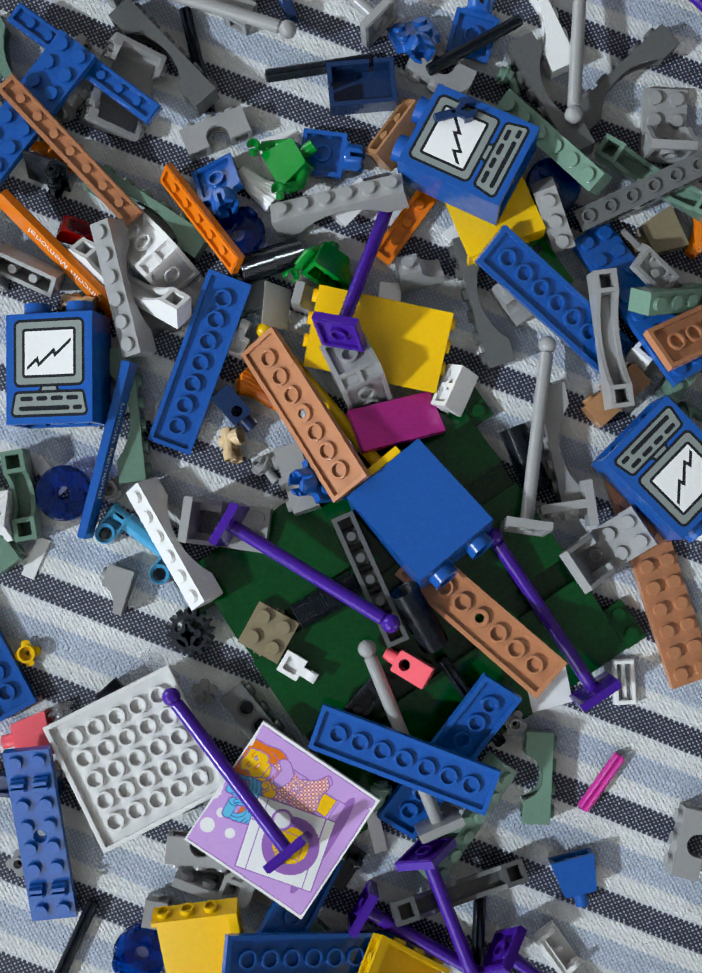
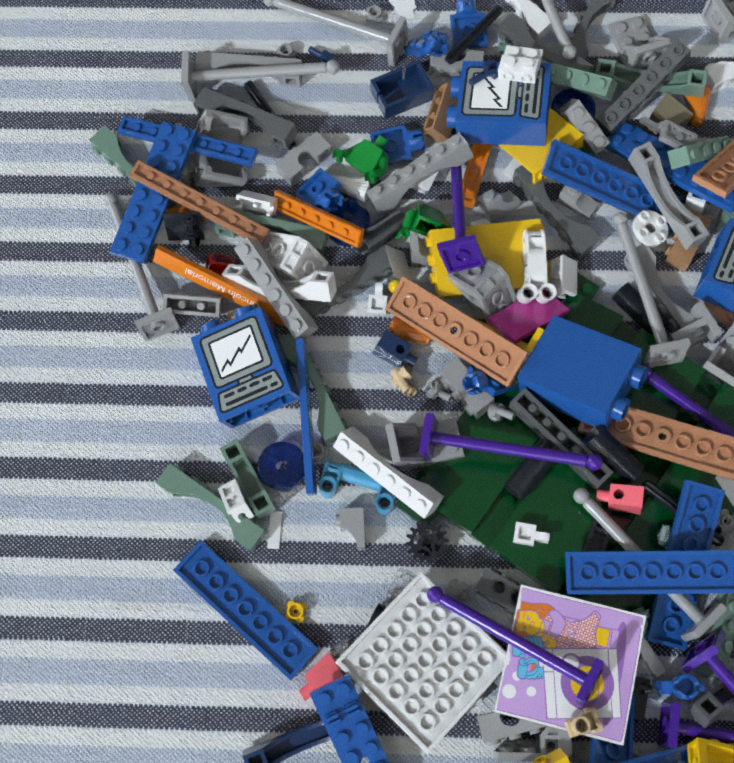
camera: 10 degrees left, 15 degrees down
(142, 169) = (257, 202): none -> white hinge
(199, 361) = (355, 325): blue plate -> none
(268, 632) = (494, 514): dark tan plate -> none
(273, 886) = (587, 721): none -> tan plate
(307, 69) = (349, 96): black axle -> none
(317, 519) = (497, 411): none -> light grey plate
(386, 878) = (683, 686): none -> blue plate
(423, 370) = (535, 269): none -> white piece
(439, 719) = (664, 535): none -> clear light blue plate
(502, 116) = (520, 64): none -> white plate
(576, 368) = (650, 228): none -> white plate

